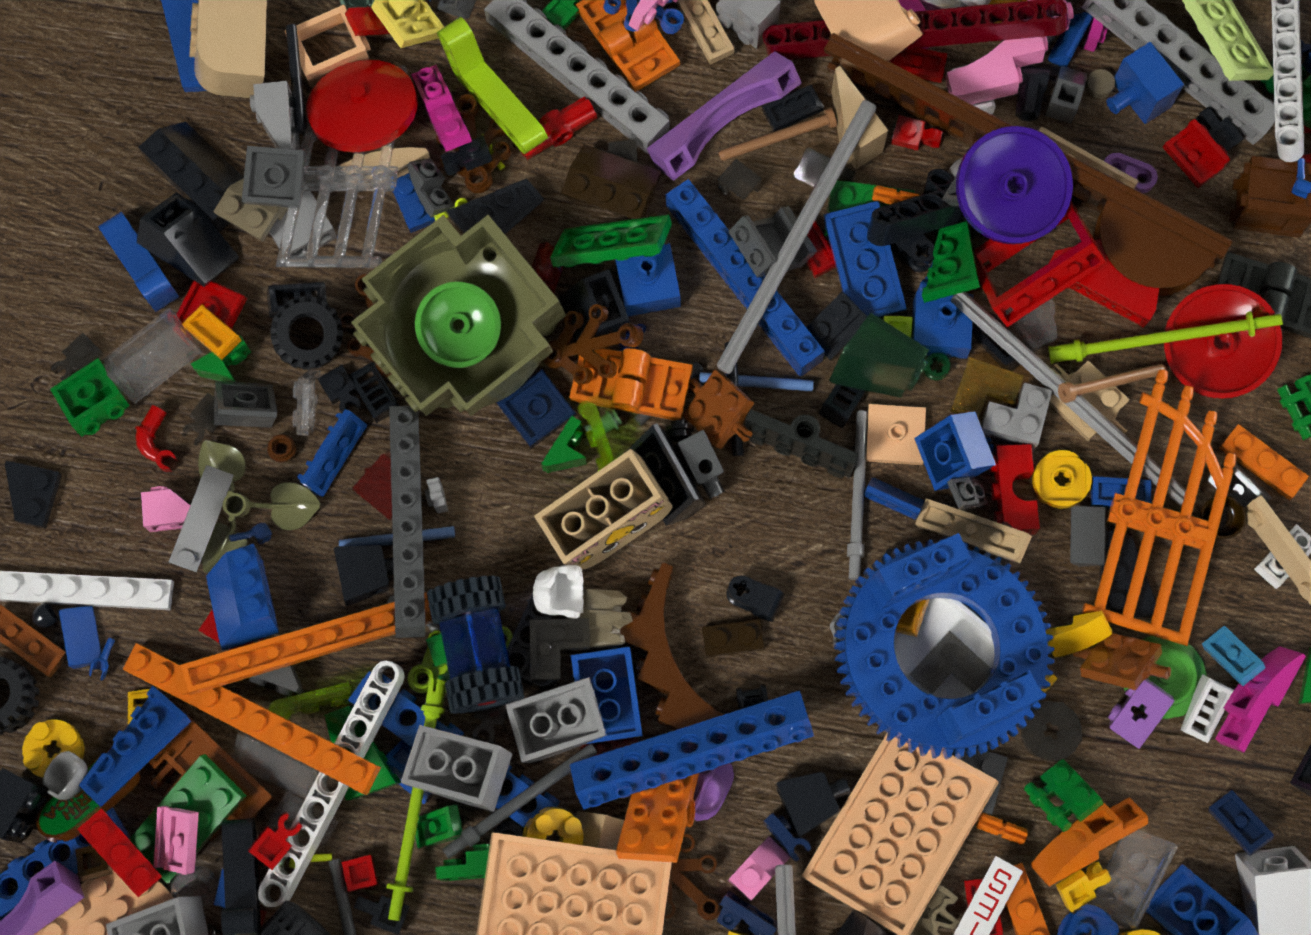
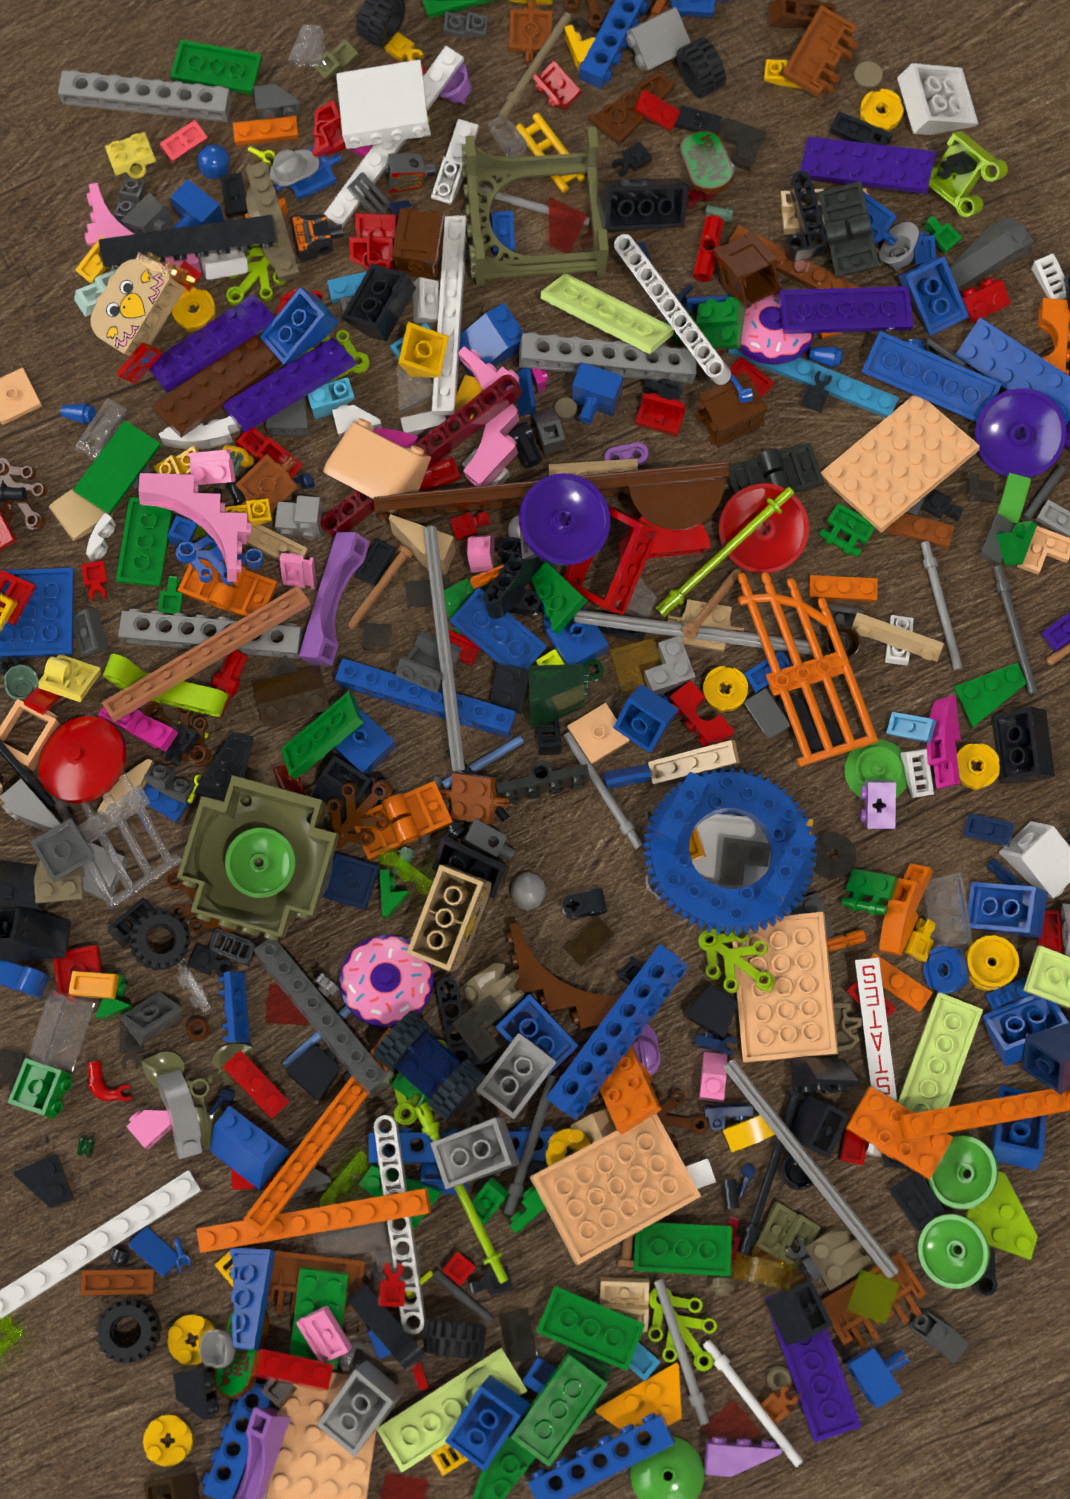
camera: 35 degrees left, 0 degrees up
(92, 485) = (86, 1146): none -> dark green bush
(293, 541) = (255, 1084): none -> red arch
(494, 531) = (384, 982): none -> bright pink dish
(556, 81) = (205, 654): none -> nougat plate
(559, 591) = (458, 990): white hair -> none
(707, 62) = (297, 570): none -> bright pink plate
(707, 543) = (528, 891): none -> light grey hair
(868, 761) = (733, 958): none -> lime plant
(906, 168) = (481, 552): none -> bright pink slope
(968, 493) = (673, 740): dark grey slope -> none
(1084, 632) = (810, 777): yellow slope -> none
(1122, 661) = (845, 780): dark orange plate -> none
(1224, 880) = (1003, 873): none -> dark blue axle
(1289, 757) = (990, 766): none -> yellow plate

